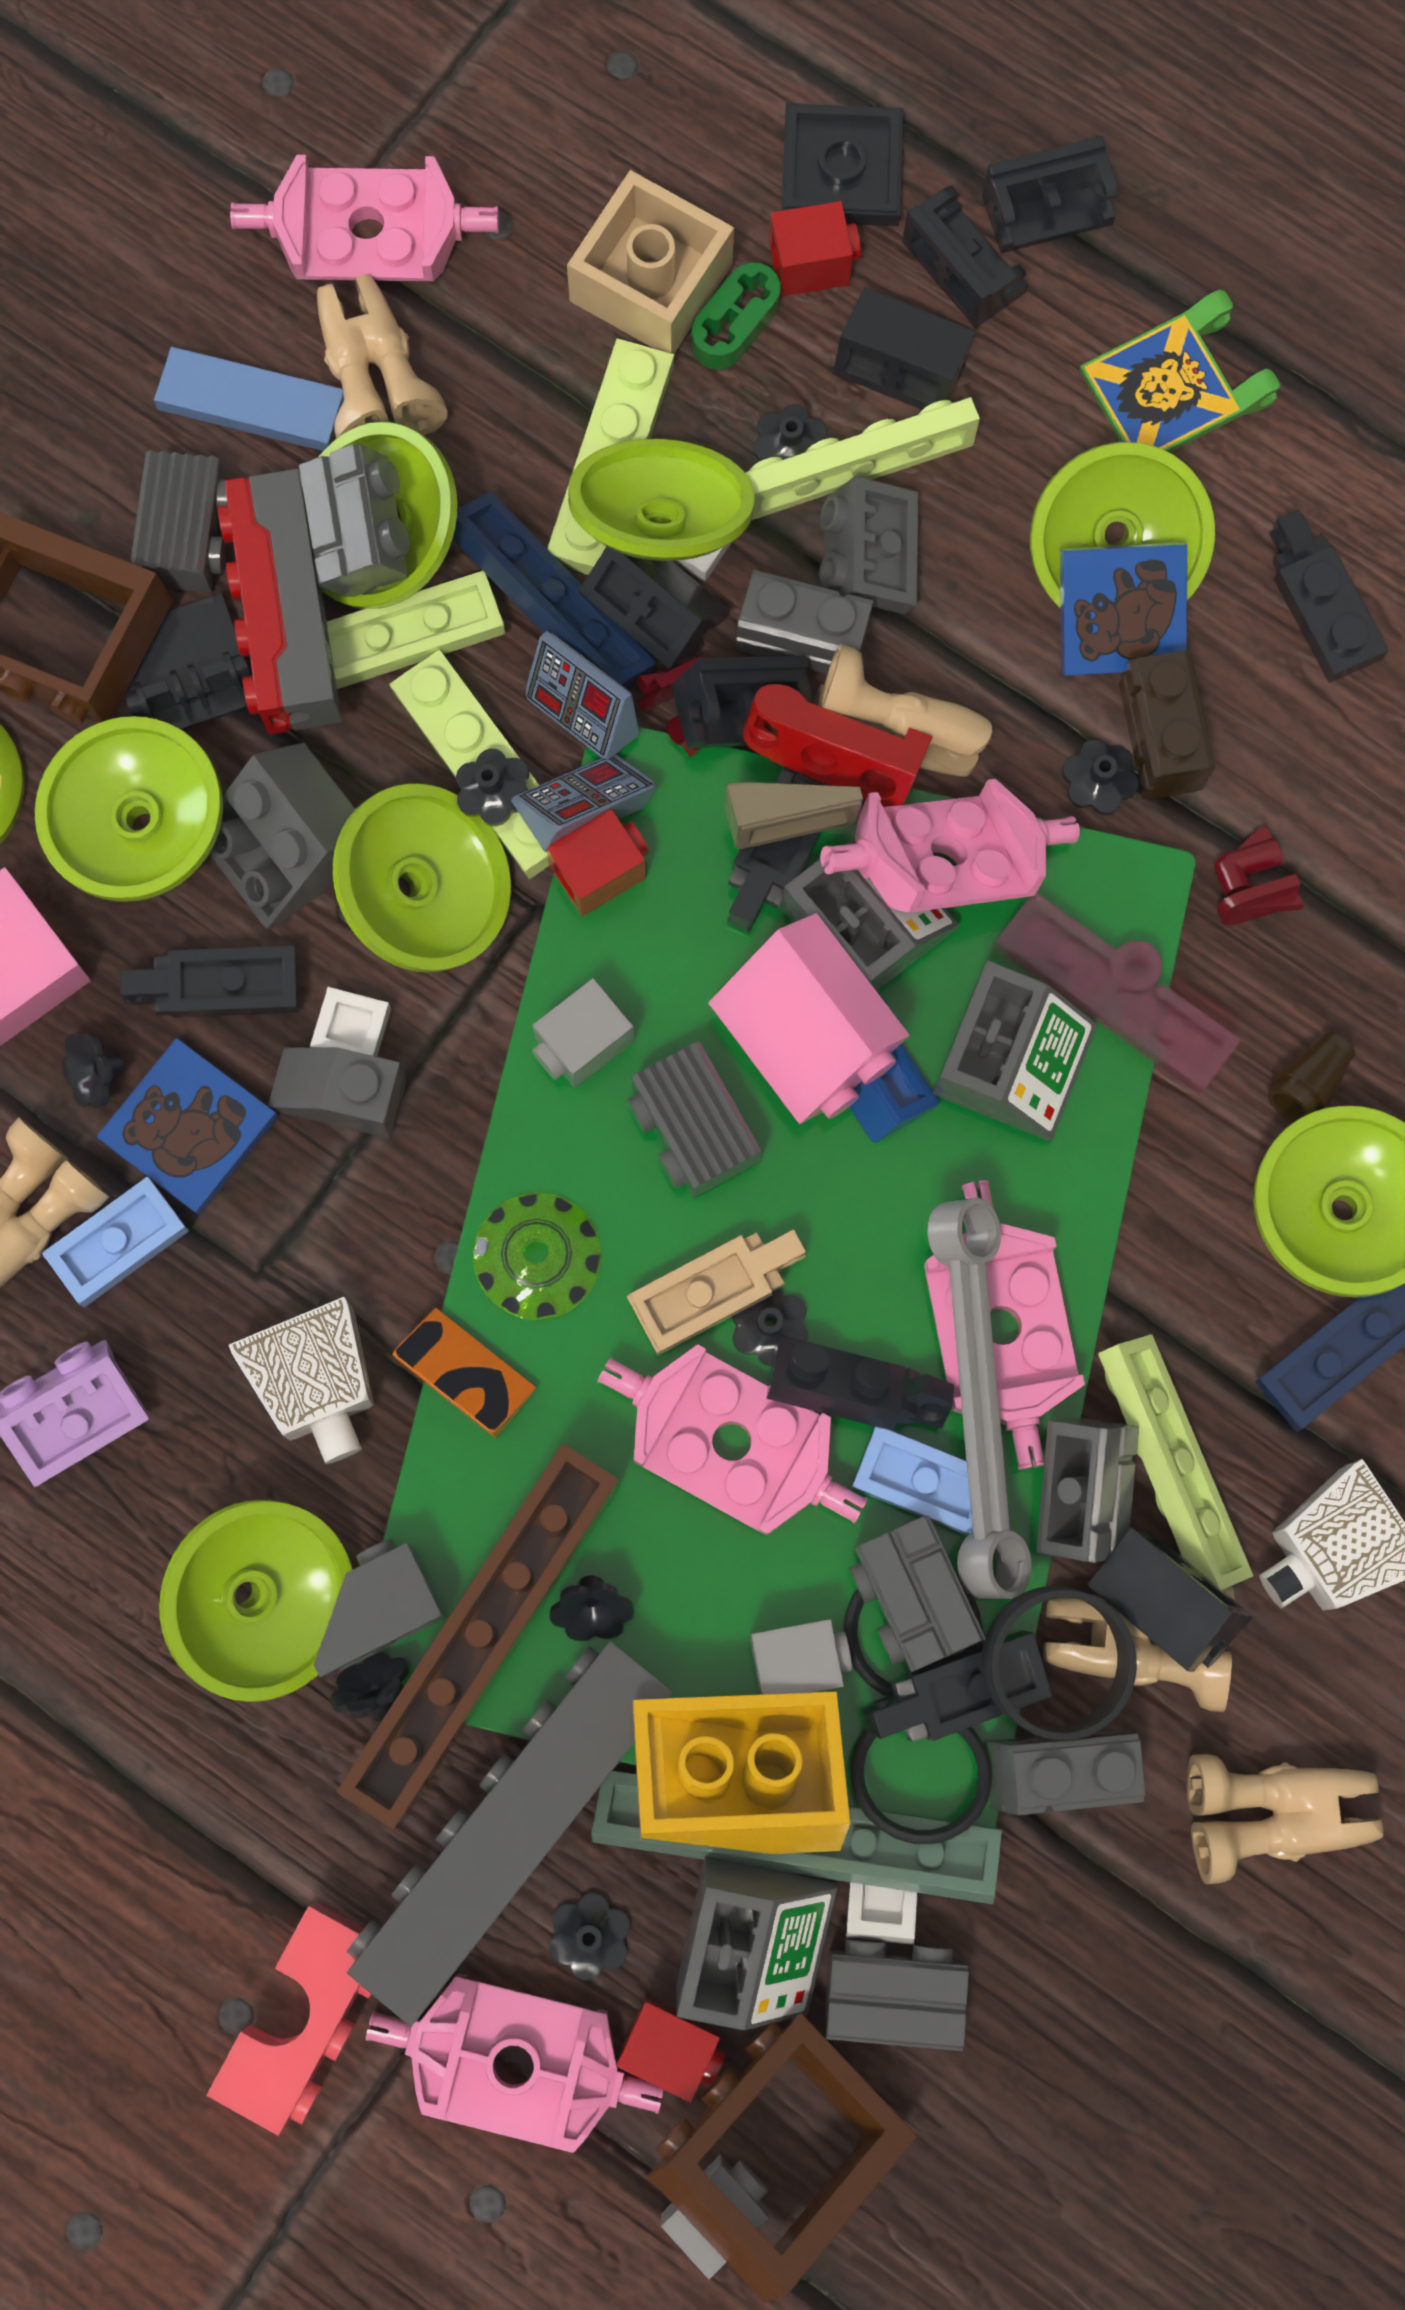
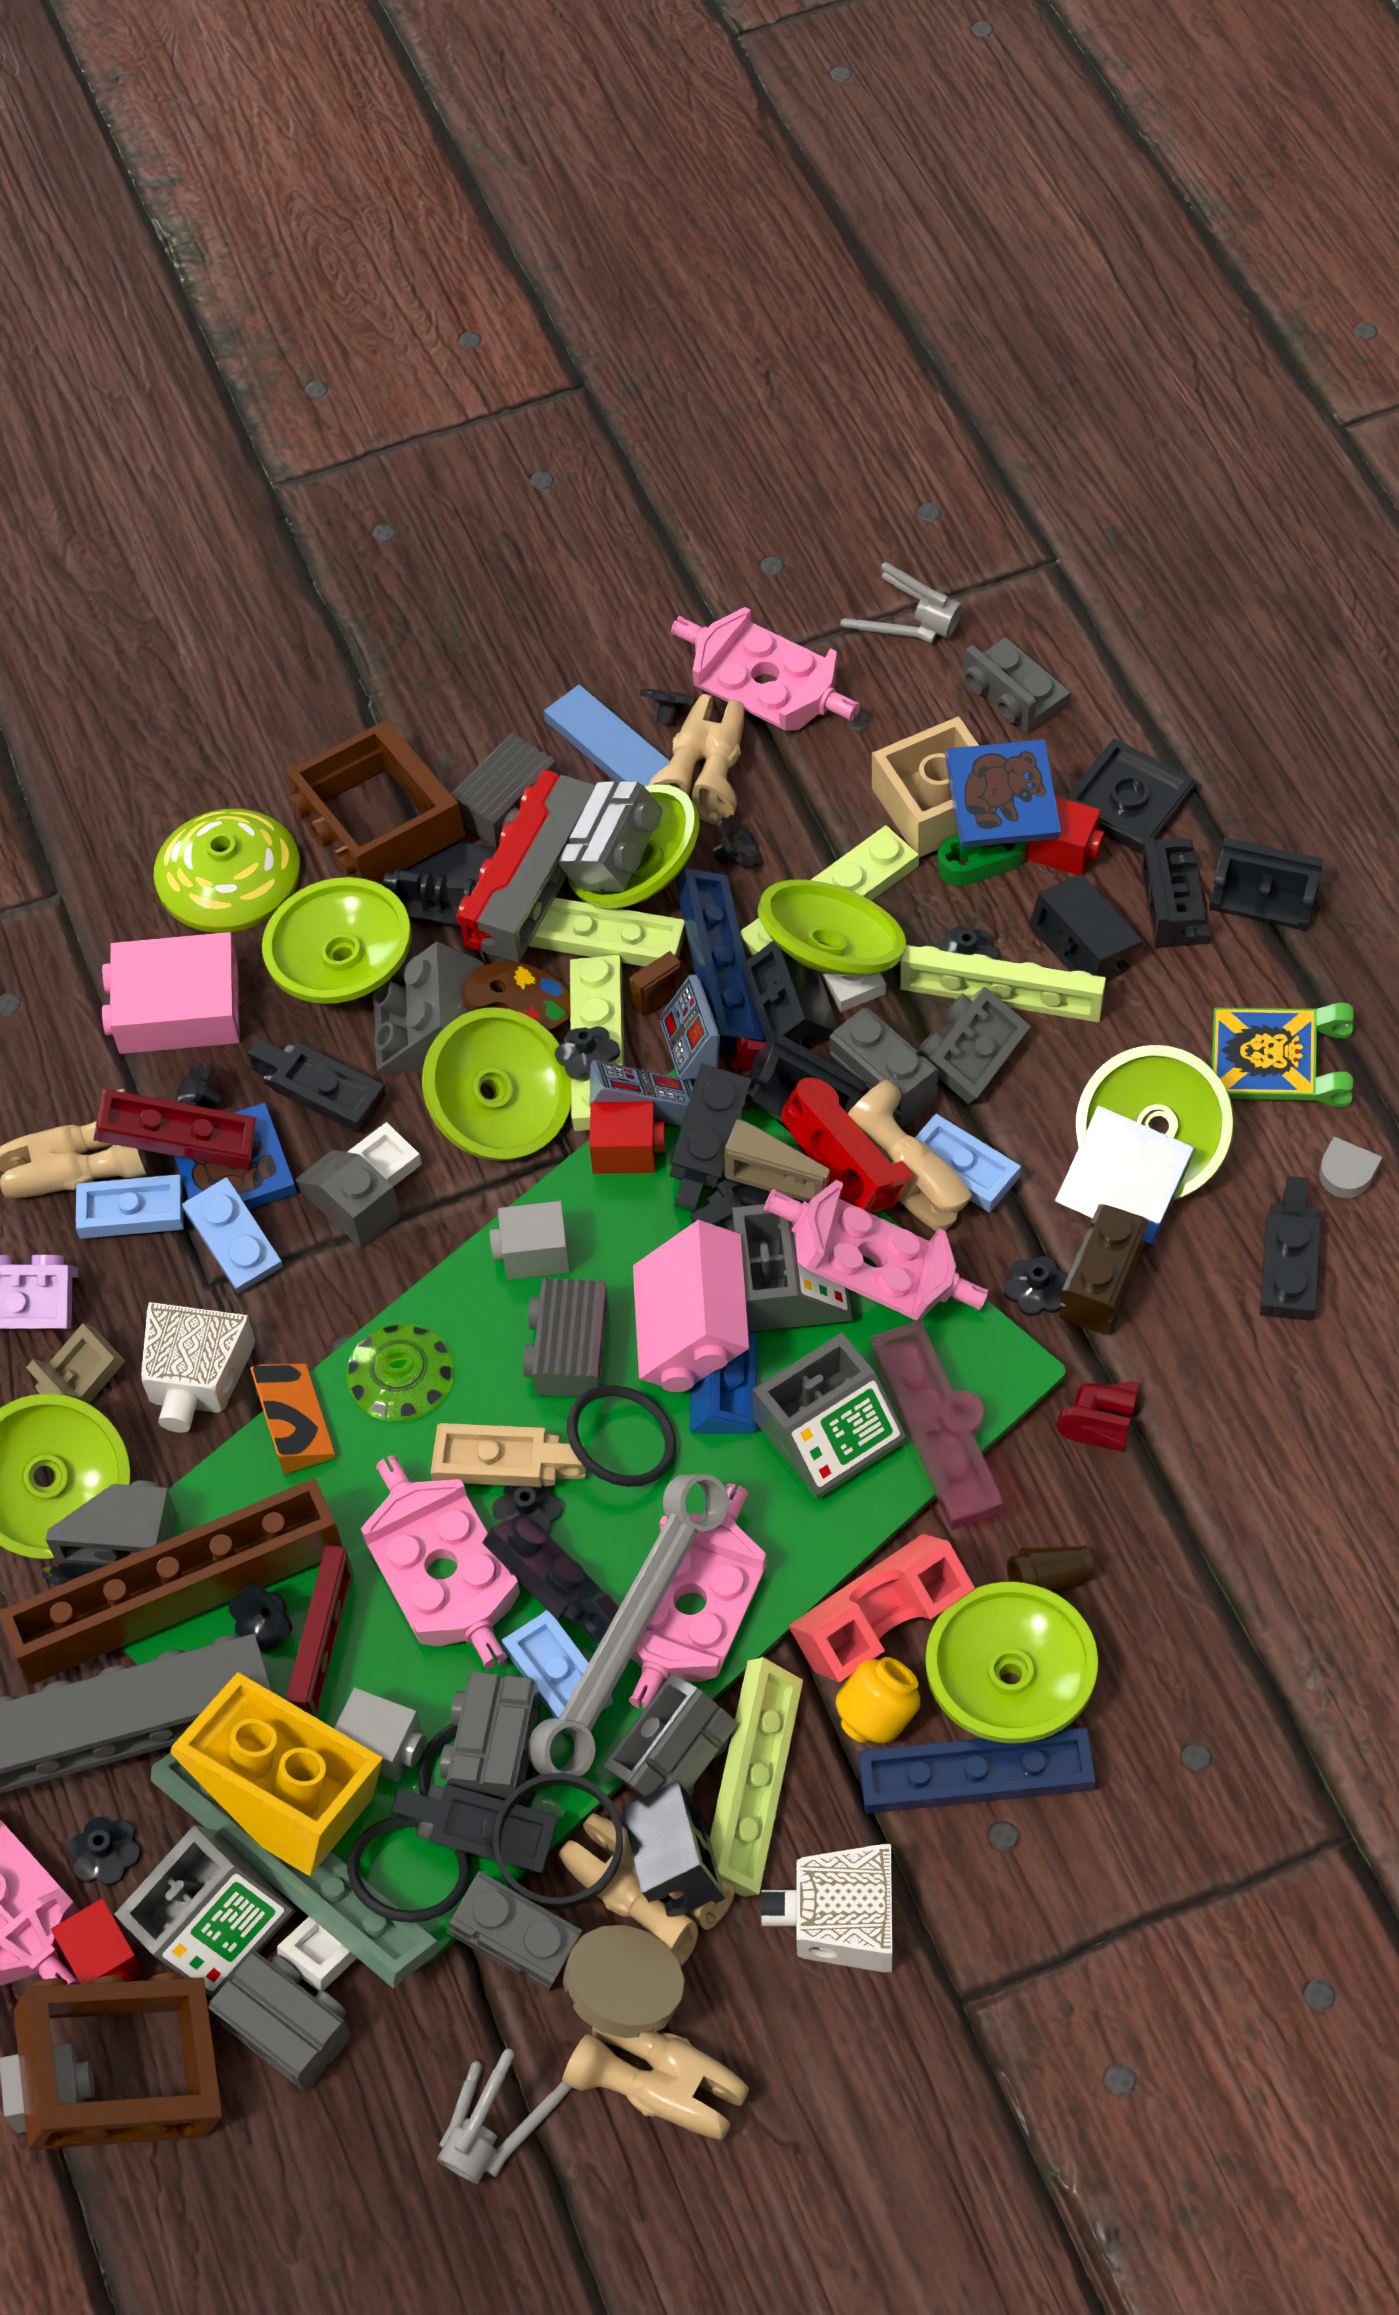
camera: 40 degrees right, 20 degrees down
(112, 1133) = (174, 1128): none -> dark red tile
(194, 1458) = (79, 1367): none -> dark tan bracket
(251, 1209) = (232, 1235): none -> light blue plate
(285, 314) = (667, 703): none -> black plant
(380, 752) = (524, 991): none -> reddish brown piece
(475, 448) = (736, 843): none -> black plant
(502, 50) = (934, 612): none -> light grey plant
(503, 661) = (656, 983): none -> reddish brown tile
(639, 93) = (1014, 684): none -> dark grey bracket
(665, 1591) = (320, 1630): none -> dark red tile
(686, 811) = (705, 1131): none -> black hinge
(740, 239) = (1002, 793): none -> tile
(797, 1240) = (595, 1468): none -> black tyre
(963, 679) = (981, 1168): none -> light blue plate
(1160, 1997) = (468, 2144): none -> light grey plant
(1198, 1173) = (907, 1585): none -> coral arch
(1214, 1760) = (623, 1981): none -> dark tan tile
(1248, 1316) = (878, 1700): none -> yellow head
(1319, 474) = (1348, 1169): none -> light grey tile

